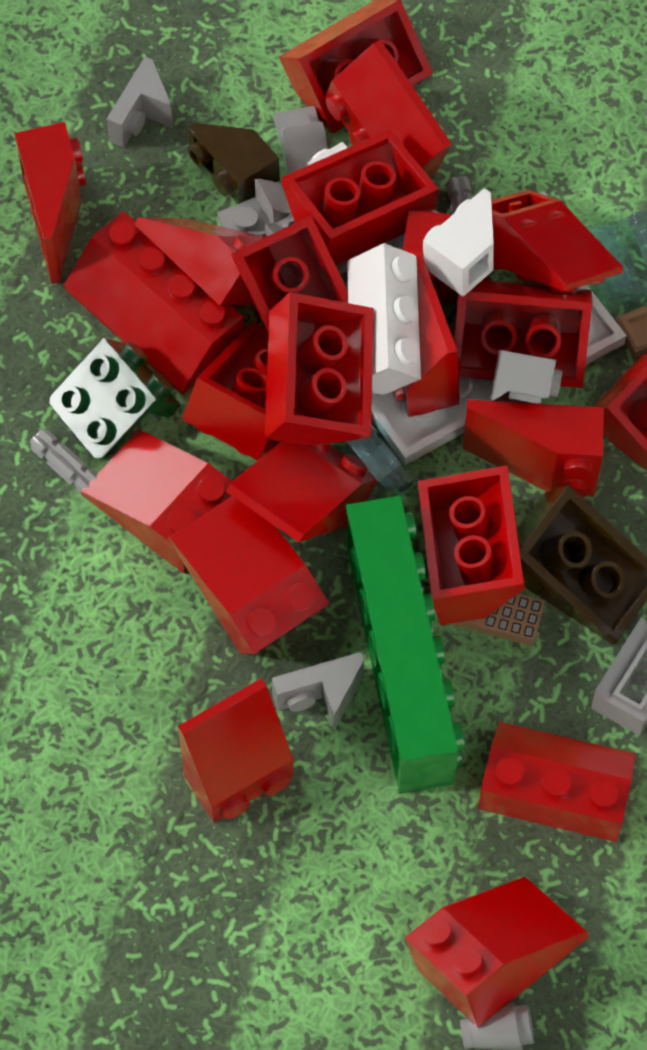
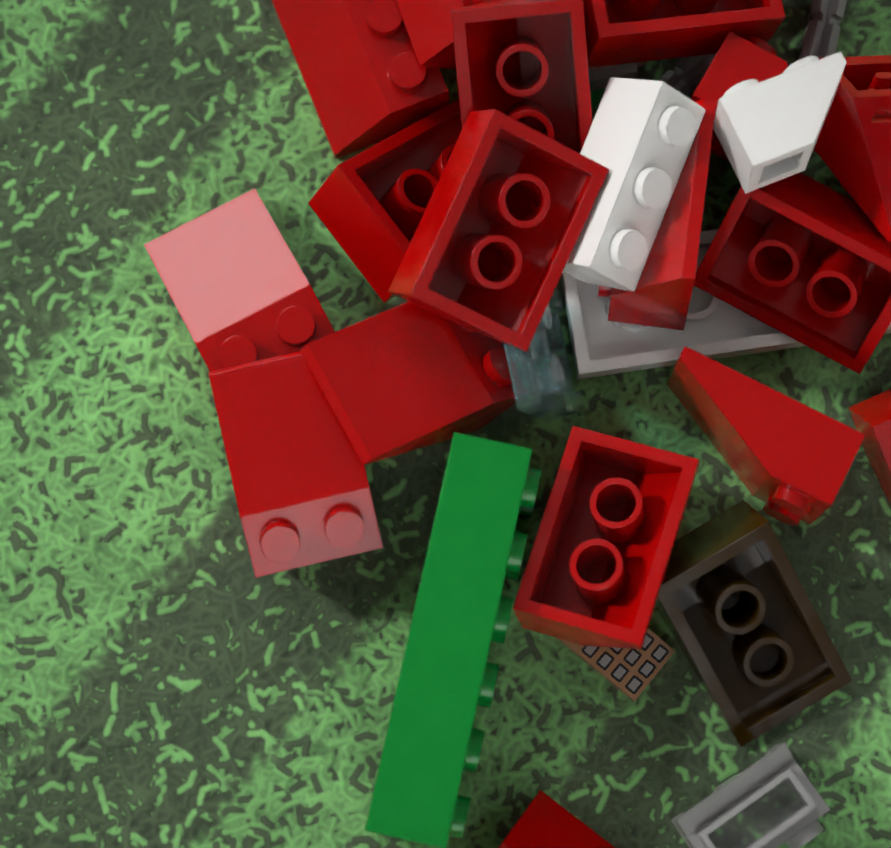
camera: 25 degrees right, 15 degrees up
(62, 460) = (141, 189): light grey axle -> none
(111, 396) = (241, 126): bracket -> none
(236, 752) = (167, 714): red slope -> none
(332, 681) = (348, 651): light grey slope -> none
(525, 377) = (779, 343): light grey window -> none

